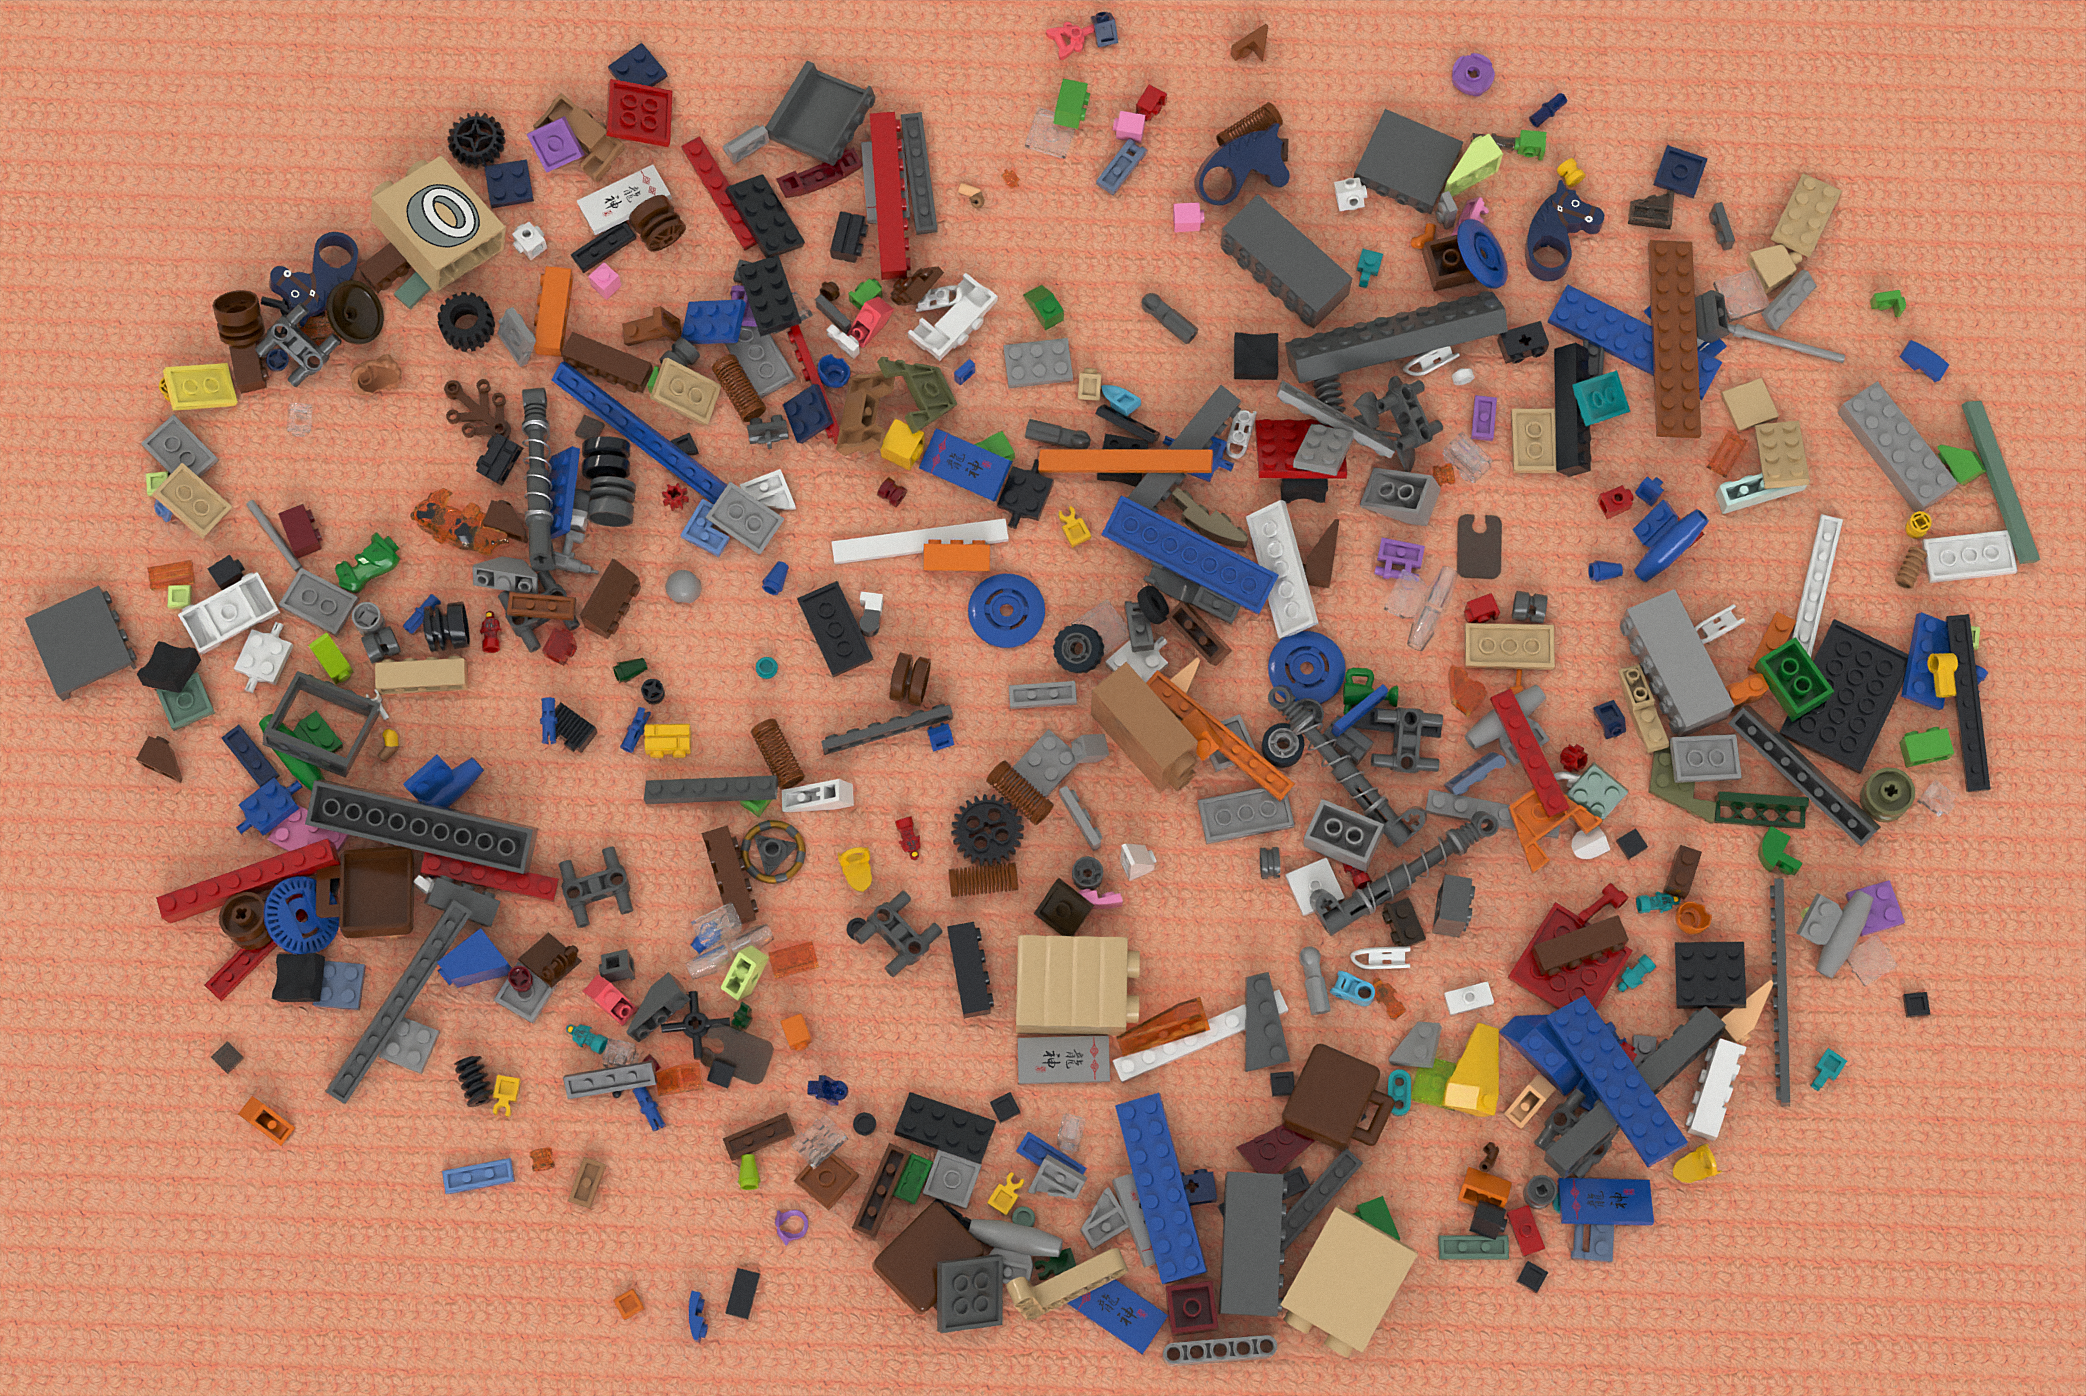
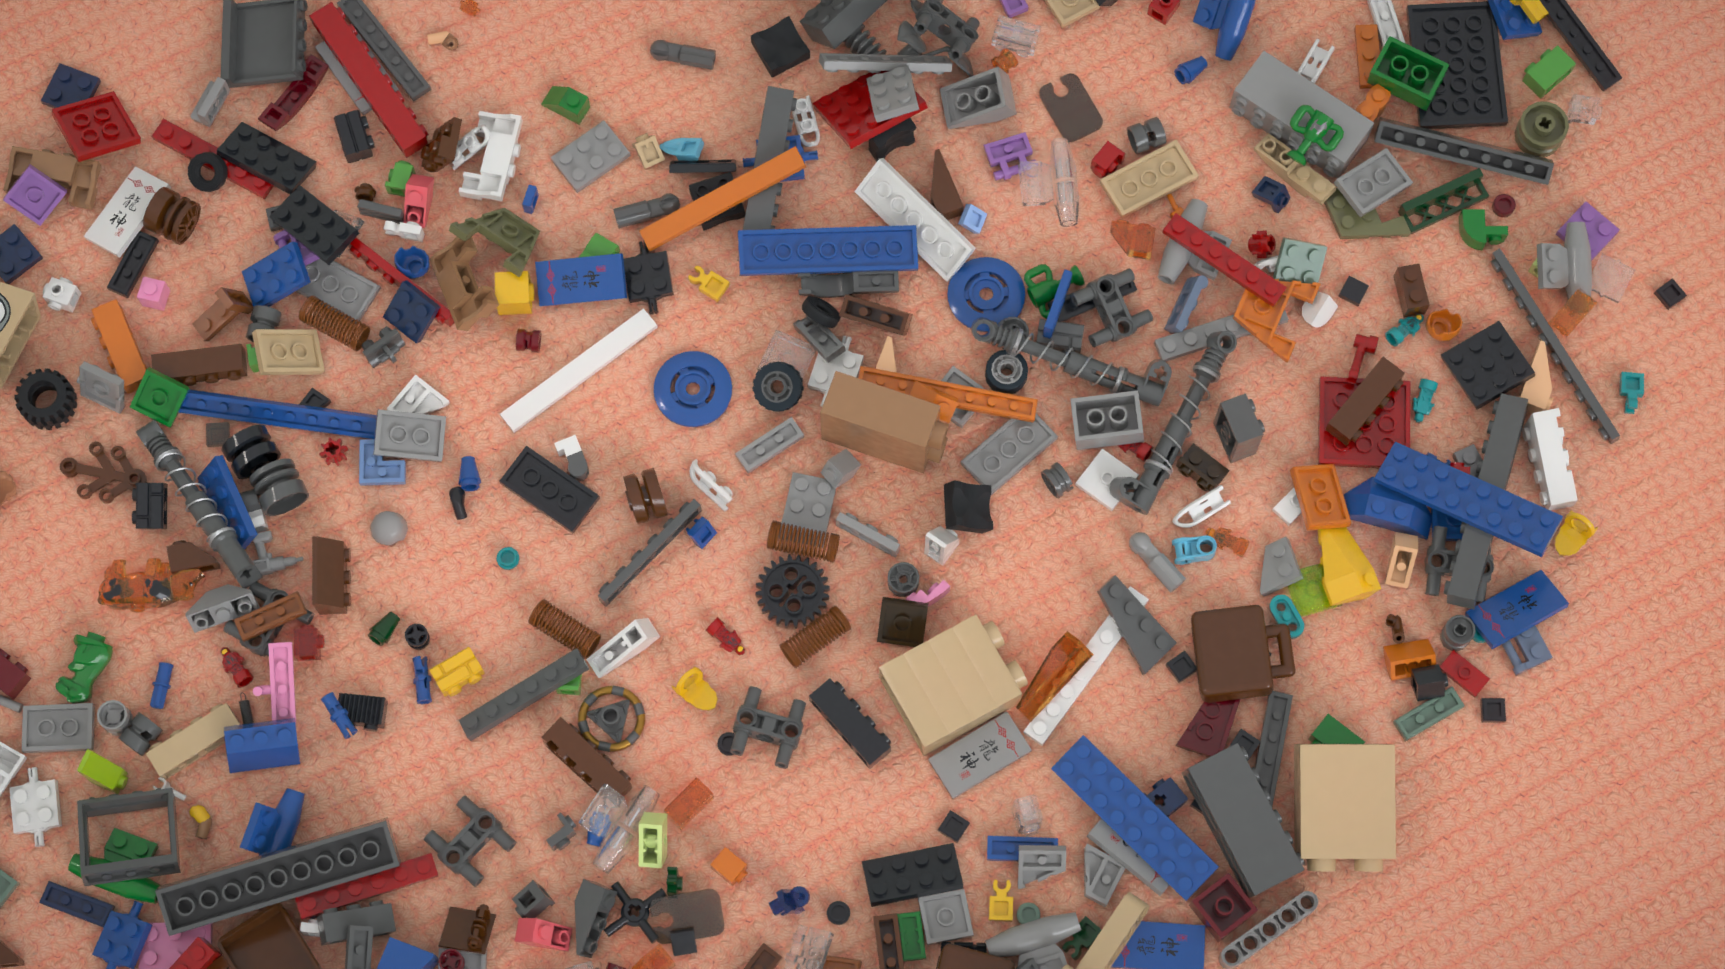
camera: 30 degrees left, 0 degrees up
(446, 626) = (192, 683): black wheel -> none
(472, 709) = (261, 745): none -> blue slope
(474, 683) = (245, 710): none -> dark grey piece
(515, 671) = (281, 681): none -> bright pink plate
(558, 371) = (159, 397): none -> green plate
(673, 927) = (562, 837): none -> dark grey bracket
(720, 206) = (217, 163): none -> black tyre
(753, 594) = (457, 498): none -> black arm
(956, 556) = (620, 365): orange brick -> none
(971, 698) = (707, 481): none -> white piece
(1178, 842) = (967, 507): none -> black brick
(1213, 526) = (834, 214): dark tan slope -> none
(1333, 596) = (972, 218): none -> light blue plate
(1491, 1006) = (1320, 497): none -> orange tile
(1675, 684) = (1313, 133): none -> green piece
(1813, 843) = (1503, 205): none -> dark red tile
(1814, 971) = (1572, 312): none -> clear orange hinge

